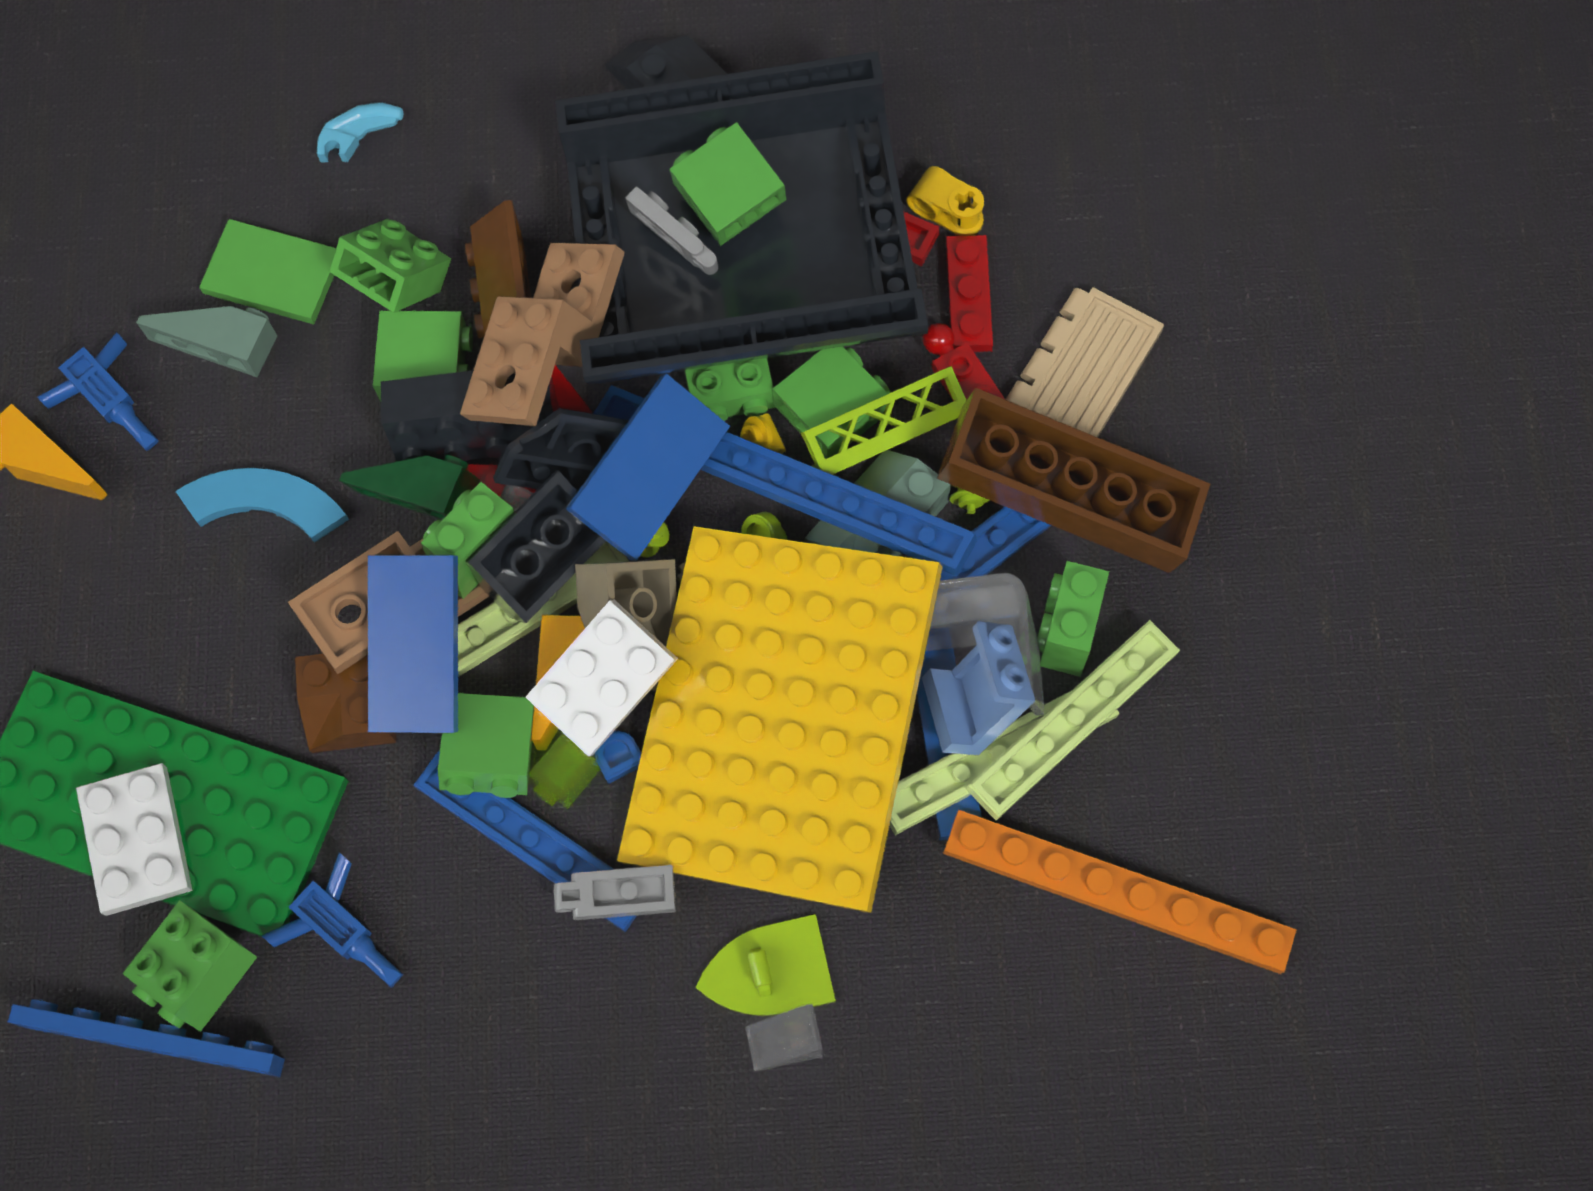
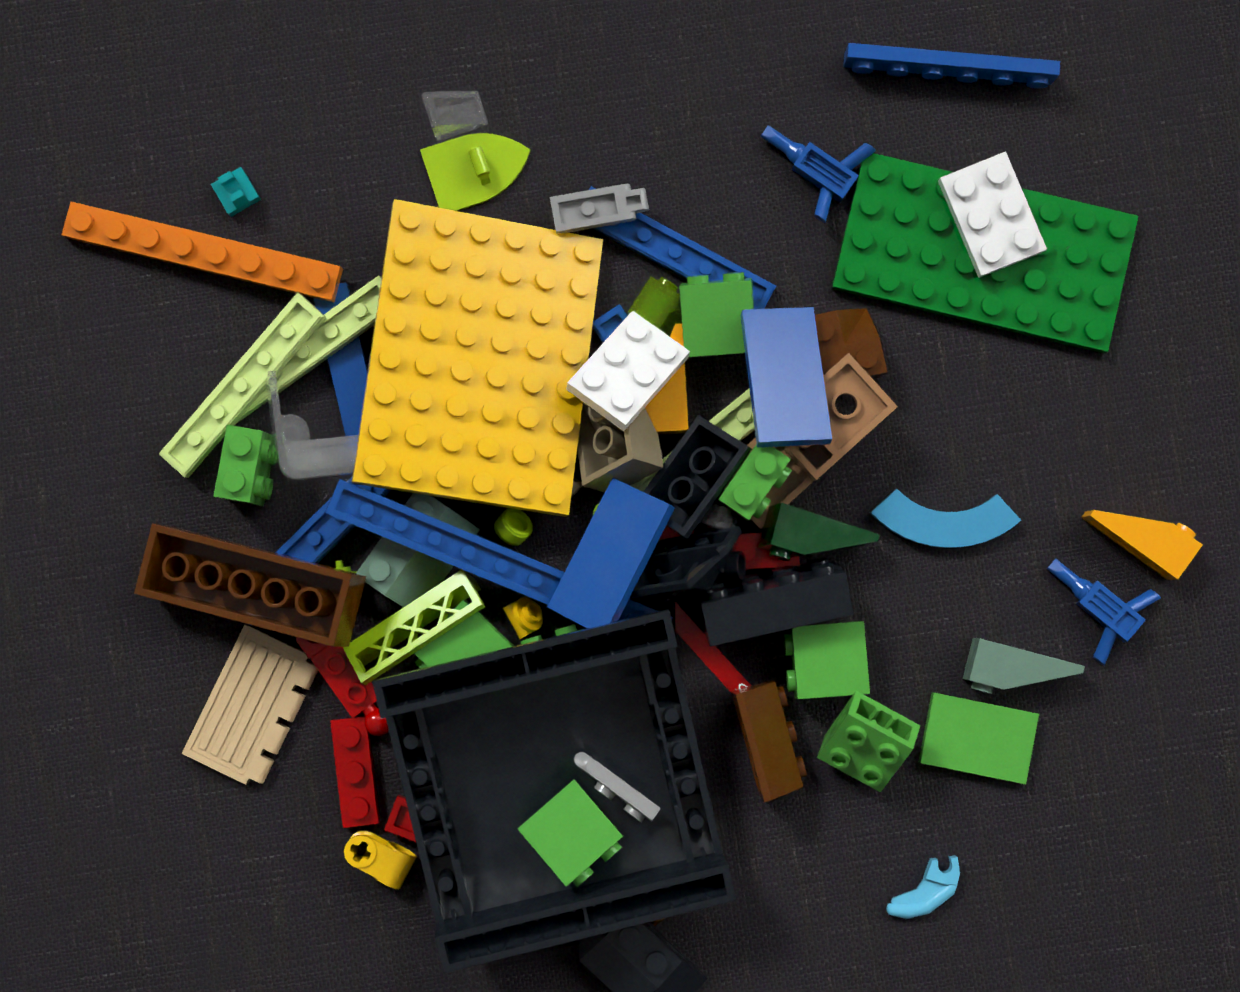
camera: 170 degrees right, 15 degrees up
(188, 968) = (927, 118): bright green brick -> none
(541, 332) = (715, 665): medium nougat bracket -> none
(980, 693) = (316, 386): medium blue panel -> none
(1073, 967) = (235, 191): none -> teal tile

